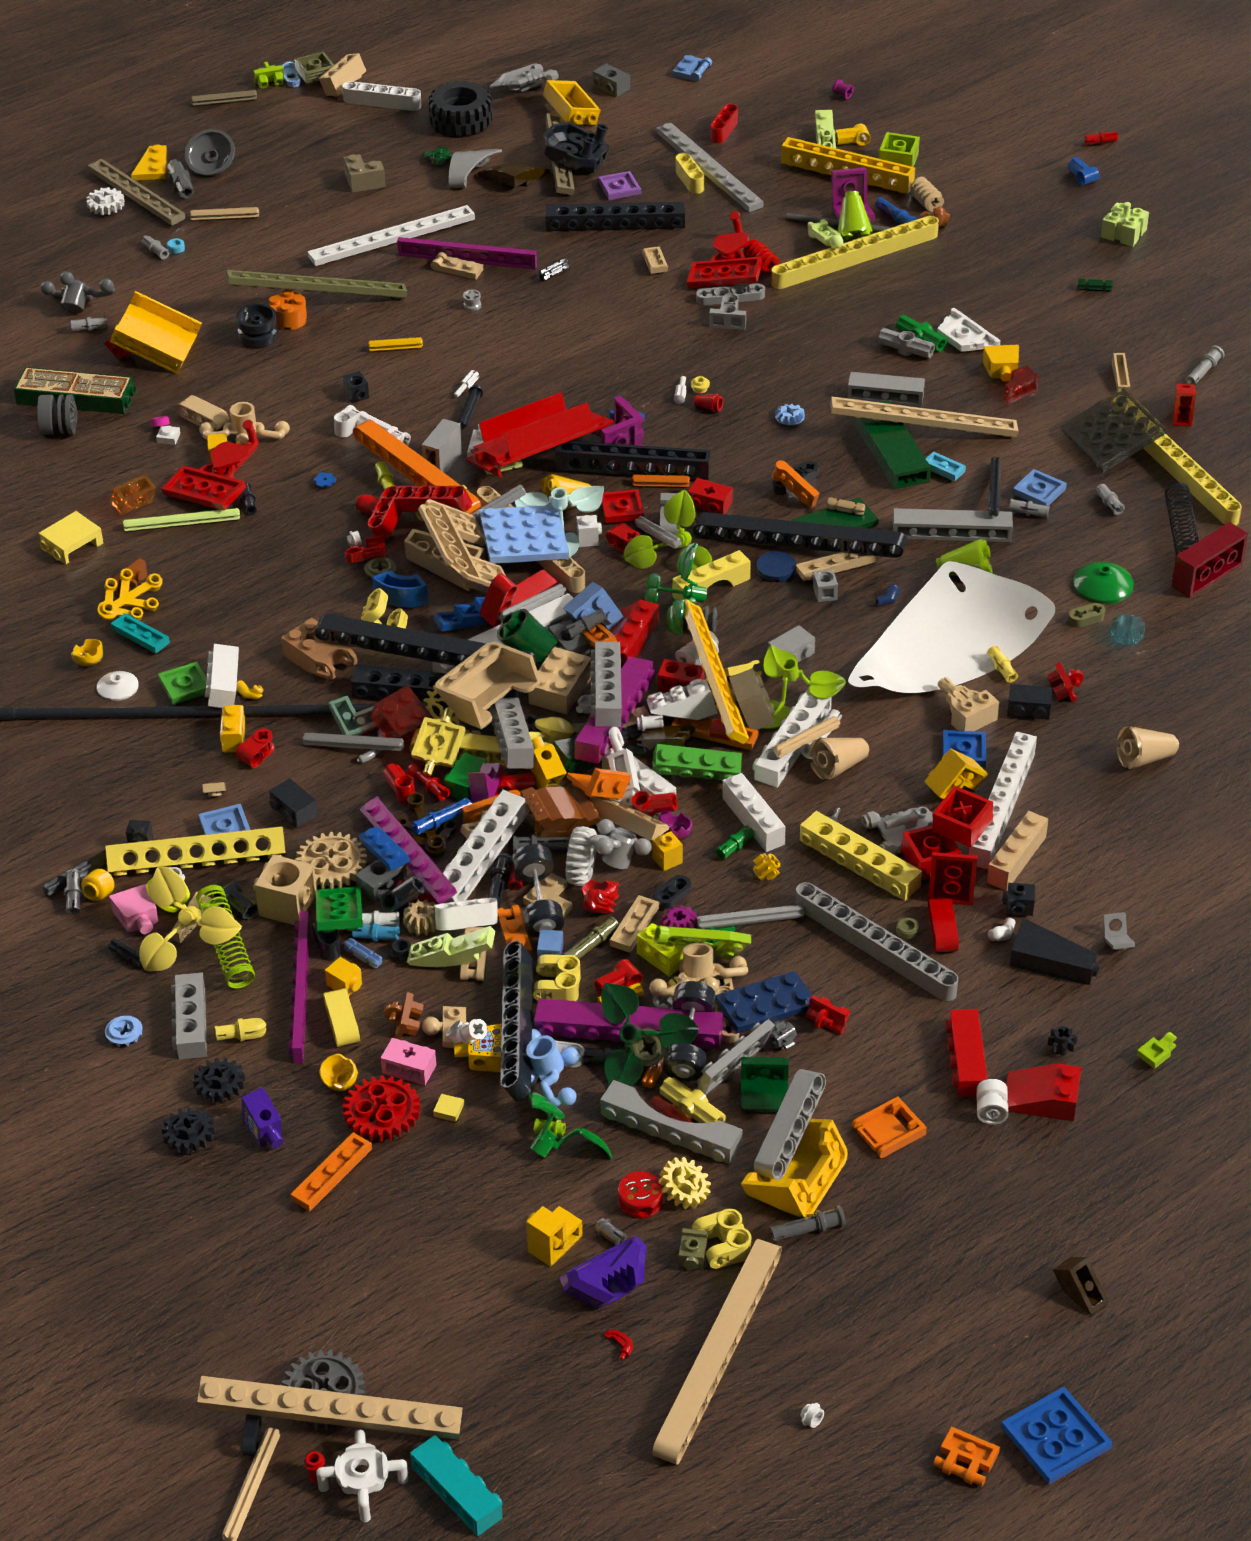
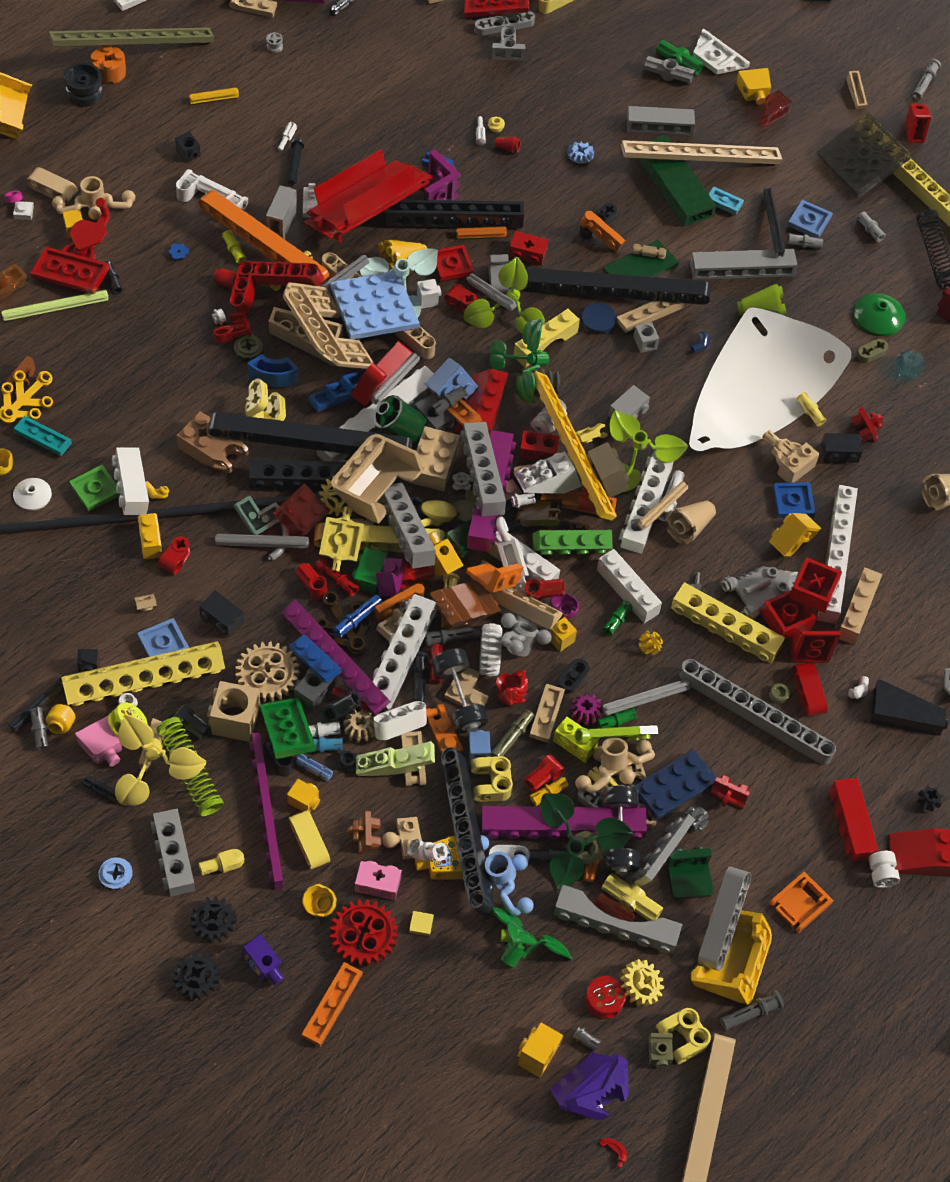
camera: 15 degrees left, 15 degrees up
(1019, 899) = (870, 657): black brick -> none

